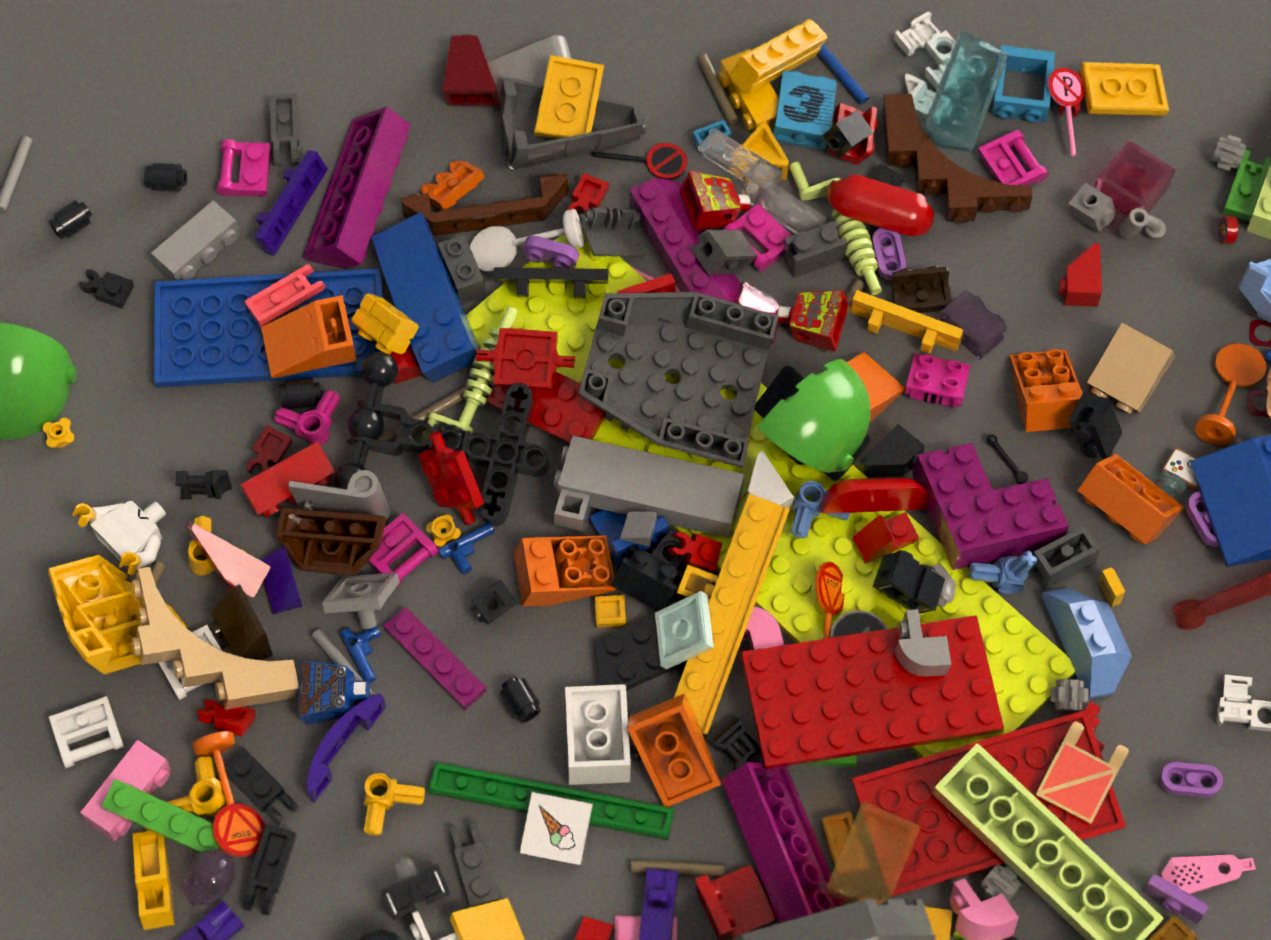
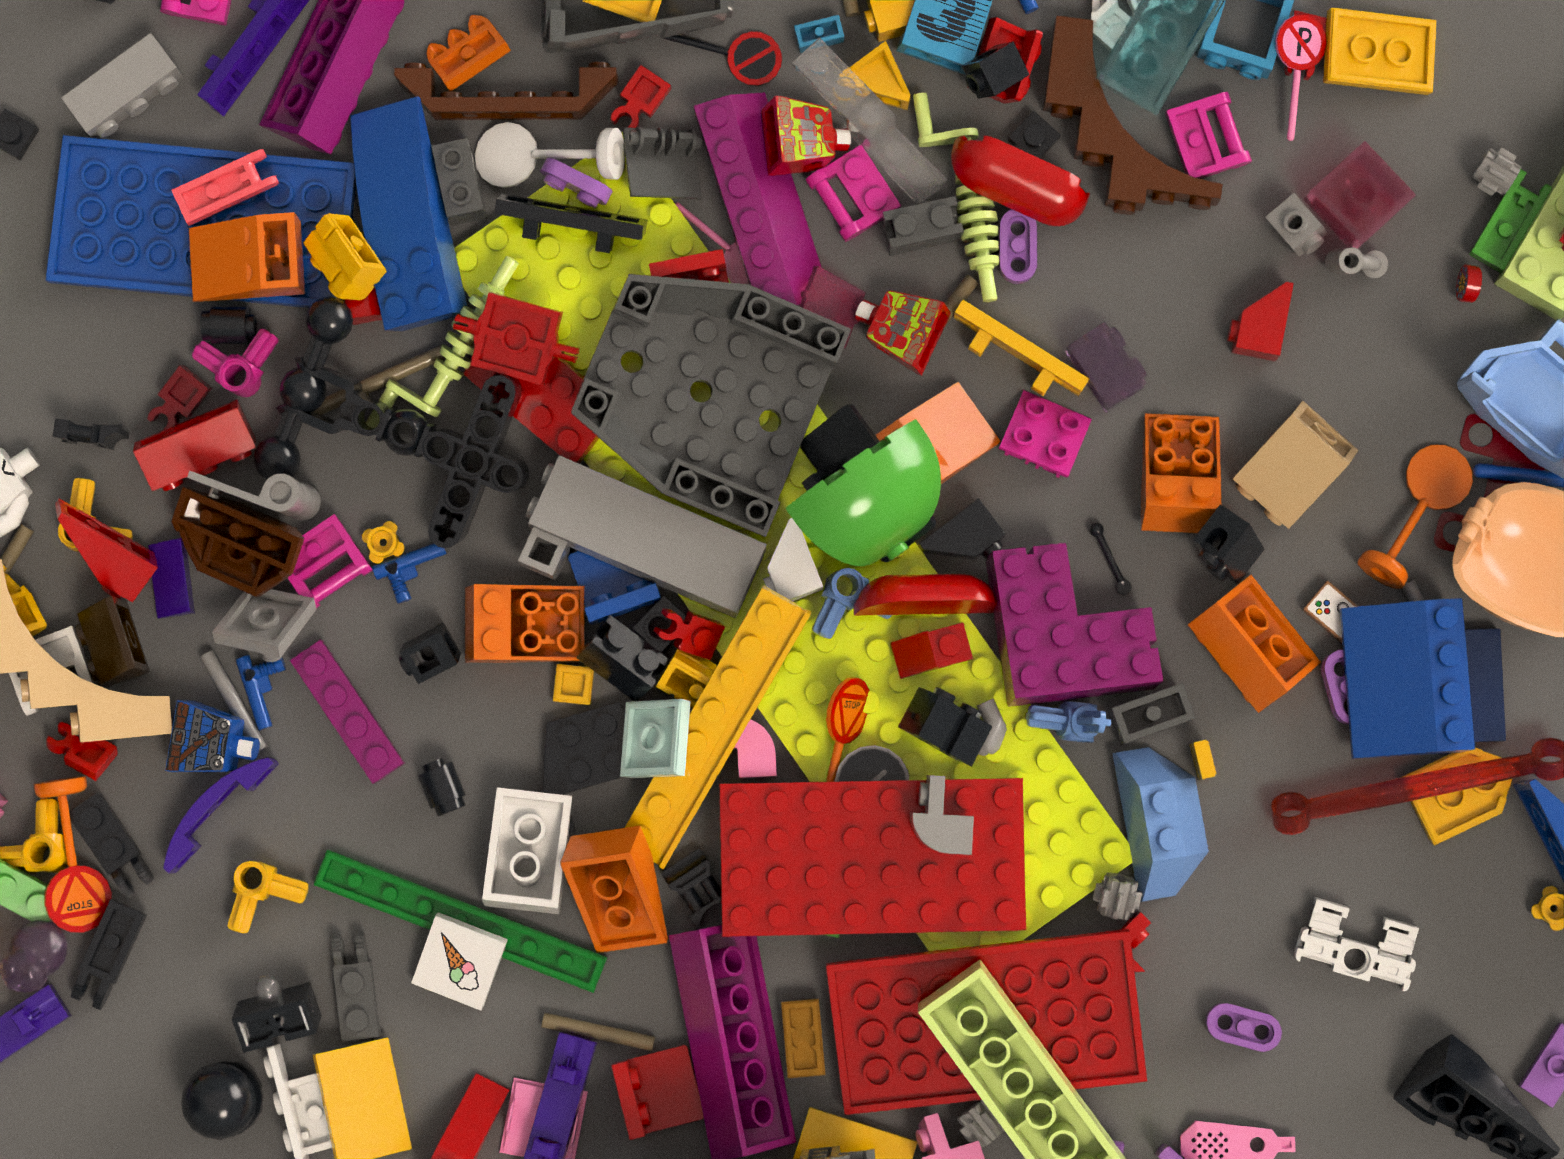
camera: 15 degrees right, 20 degrees up
(451, 478) = (396, 486): red plate -> none
(639, 527) = (621, 597): light grey slope -> none
(723, 251) = (800, 216): dark grey brick -> none
(873, 856) = (829, 1078): clear yellow piece -> none
(921, 289) = (1048, 308): dark brown bracket -> none
(1079, 779) = (1101, 1017): coral flag -> none
(1171, 483) = (1310, 631): clear light blue tile -> none

